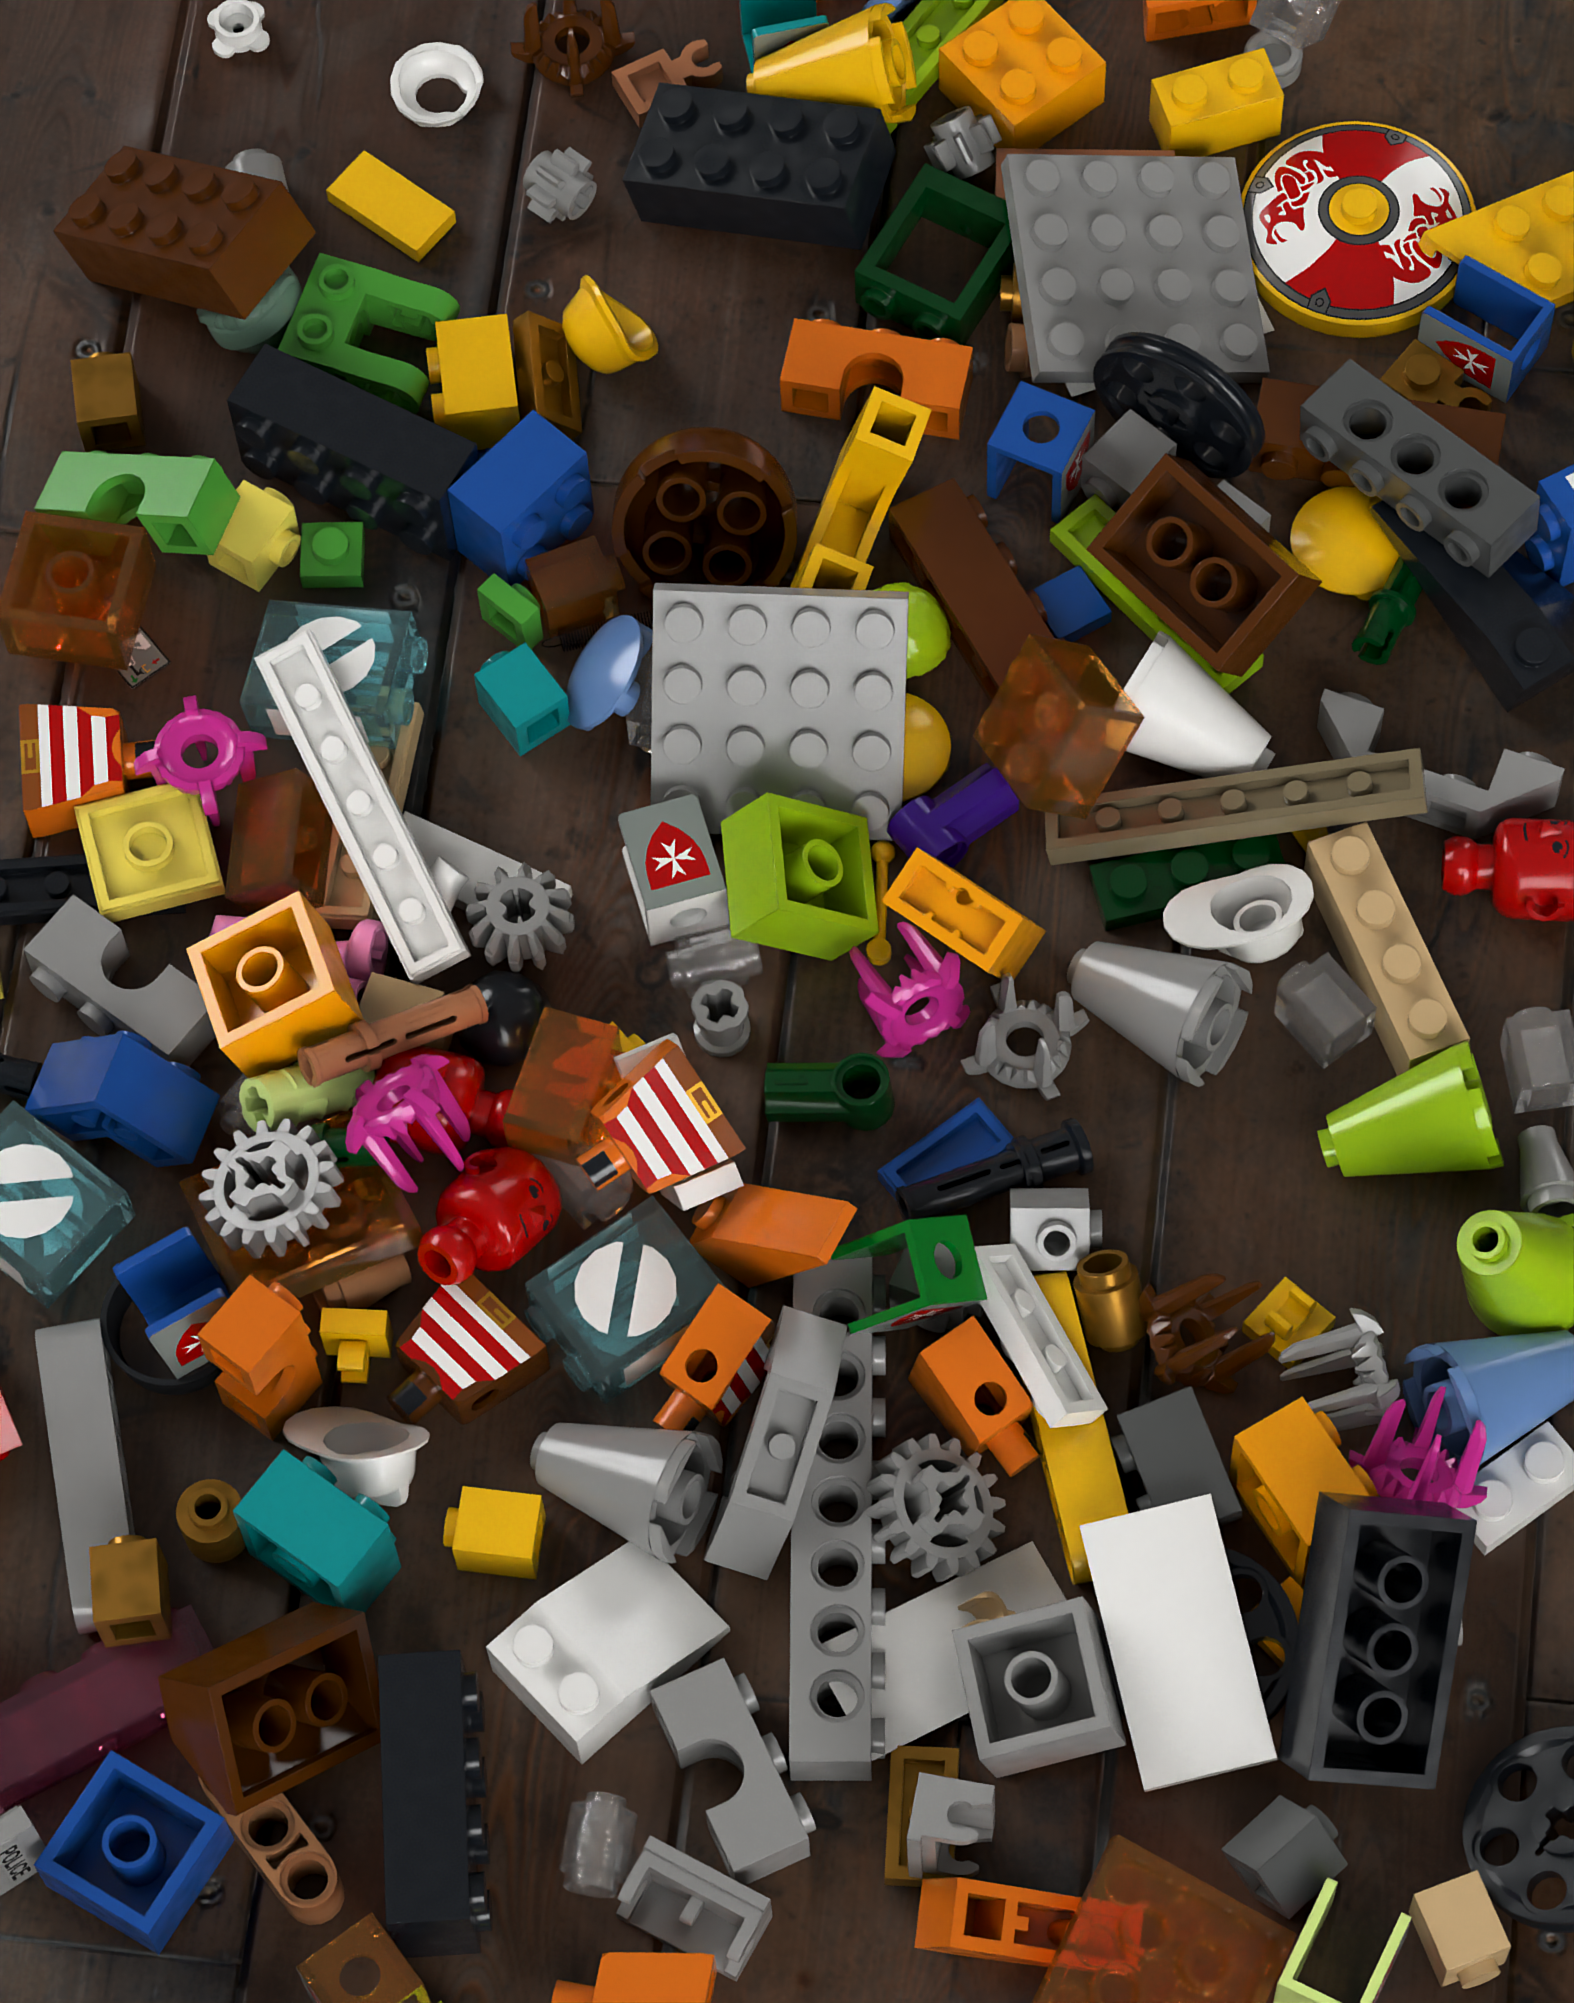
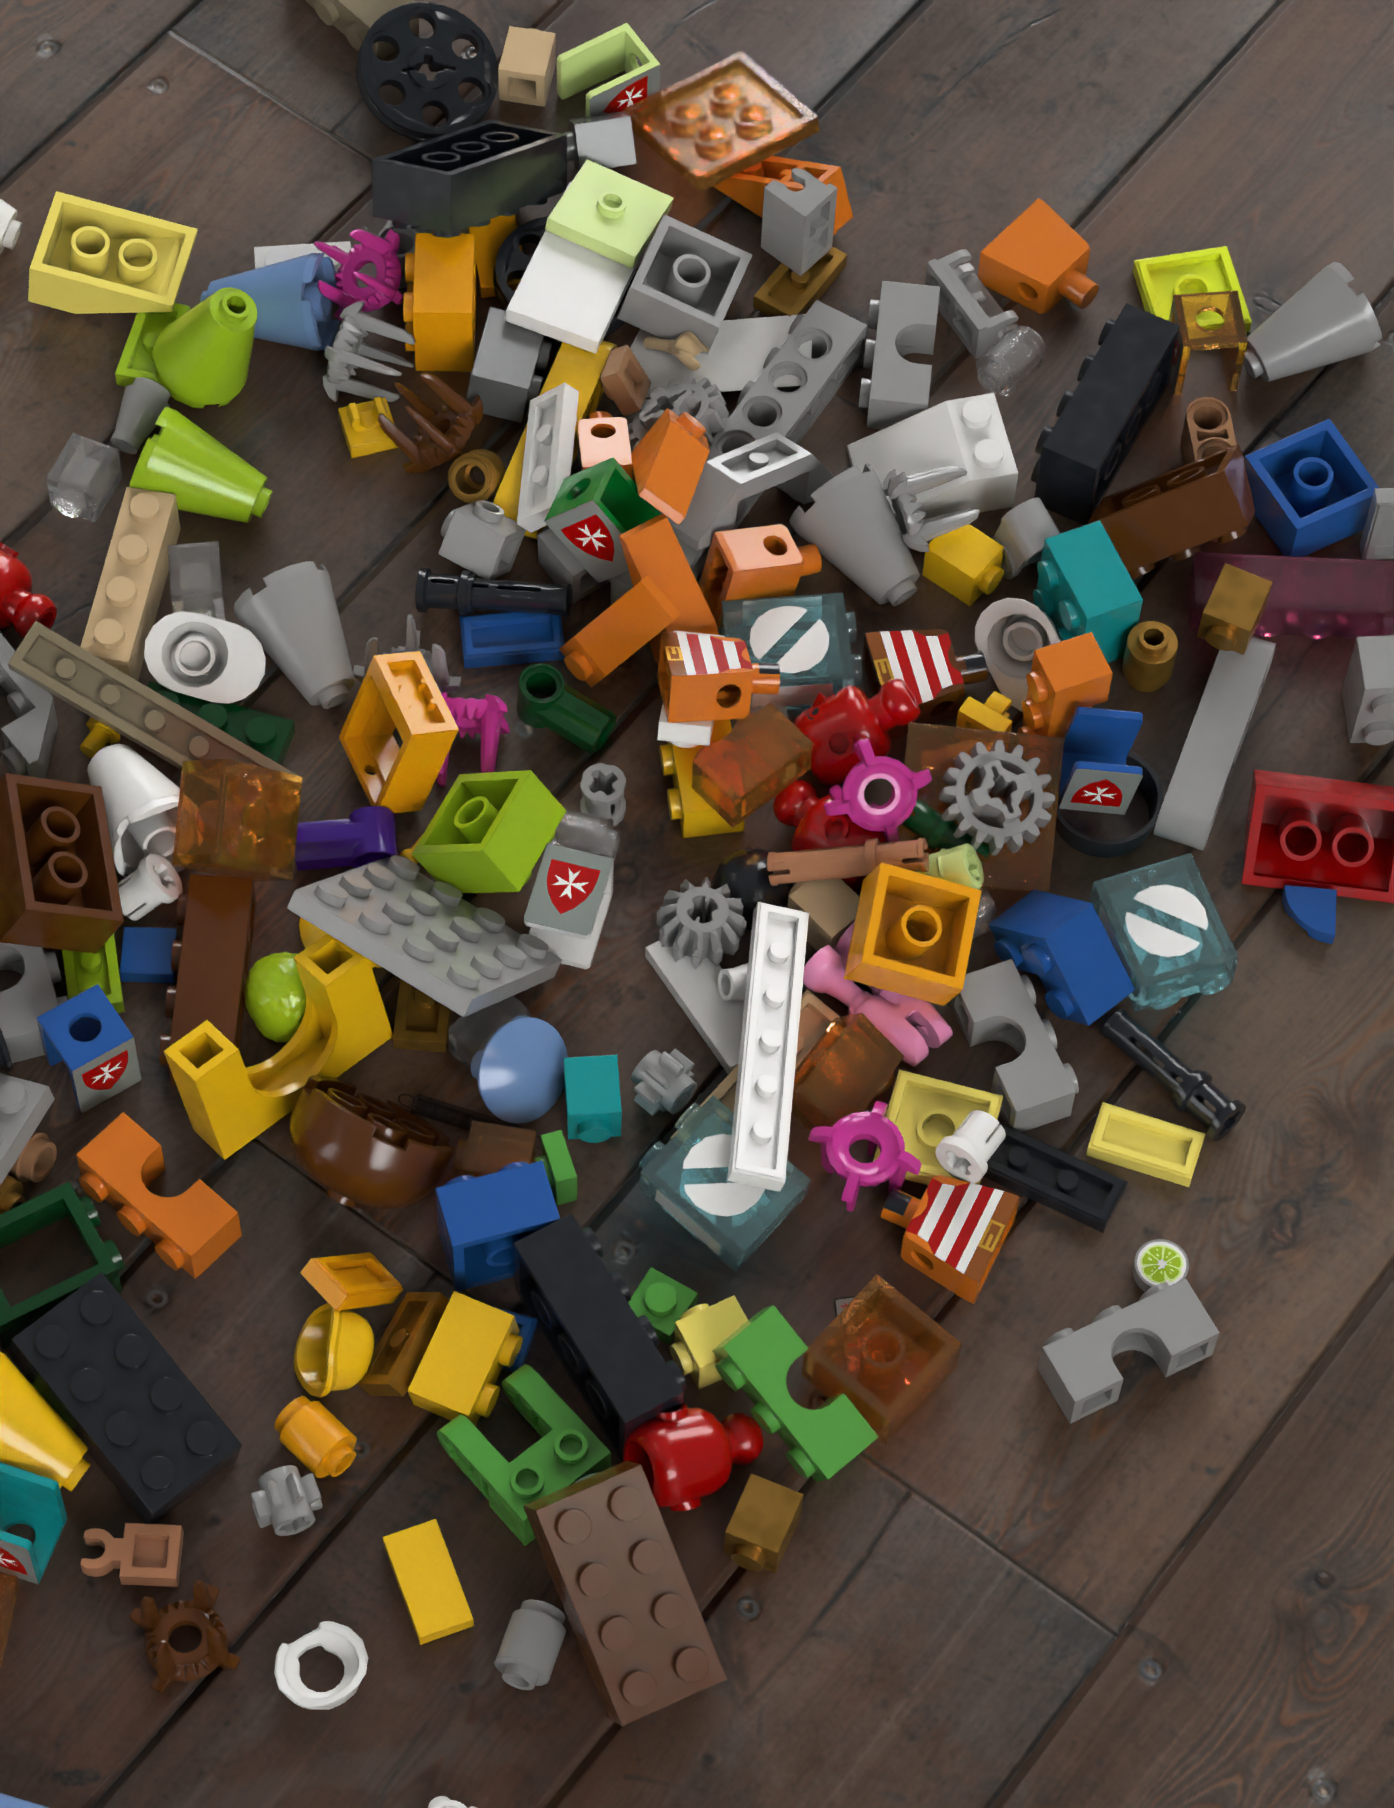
camera: 155 degrees left, 5 degrees down
(94, 818) = (971, 1146): none -> white bush
(197, 400) = (691, 1453): none -> red piece
(426, 1577) = (1023, 535): none -> light grey piece
(458, 749) = (664, 1082): none -> light grey gear
(570, 251) = (316, 1437): none -> light orange brick
(584, 1528) = (902, 495): none -> light grey piece
(628, 383) = (352, 1281): none -> light orange tile
(816, 1165) = (618, 632): none -> orange slope
(870, 1359) = (670, 463): none -> orange slope
(1027, 1524) = (625, 380): none -> medium nougat plate
(1118, 638) = (149, 886): none -> white bush
(1192, 1726) = (609, 213): none -> yellowish green plate

